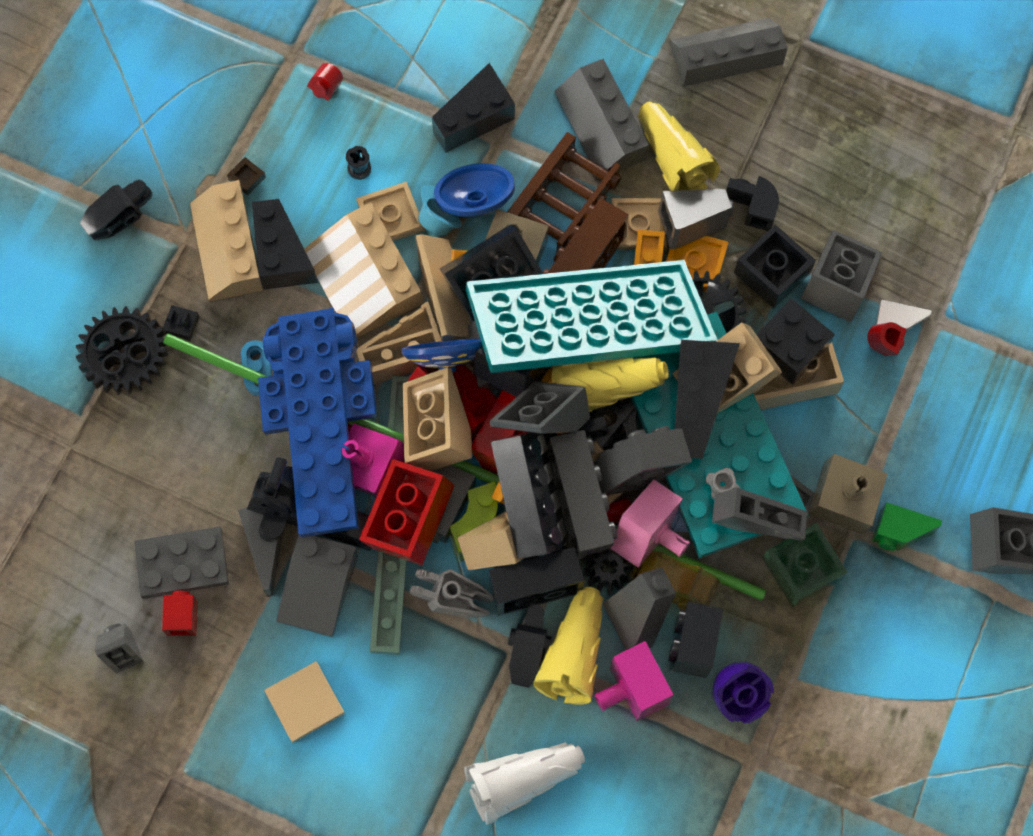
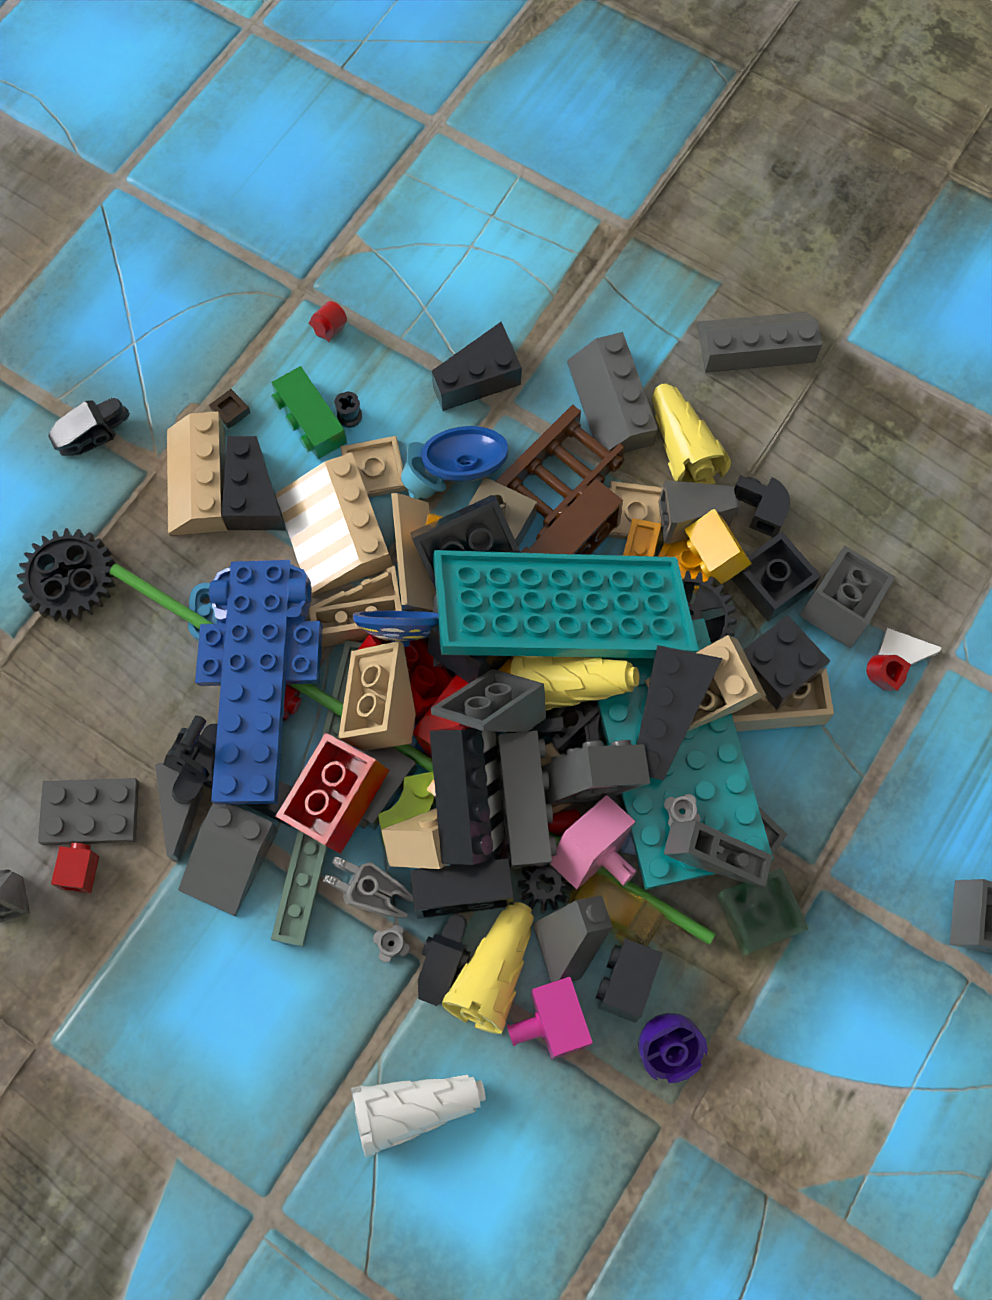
camera: 10 degrees right, 0 degrees up
(181, 322) = (134, 553): black tile -> none
(304, 702) = (192, 985): tan tile -> none
(321, 170) = (308, 413): none -> green brick
(371, 457) = (304, 725): dark pink brick -> none
(481, 632) = (393, 934): none -> light grey plate
(719, 246) = (717, 547): none -> yellow brick
(848, 493) = (821, 838): dark tan brick -> none
(902, 527) = (875, 884): green slope -> none

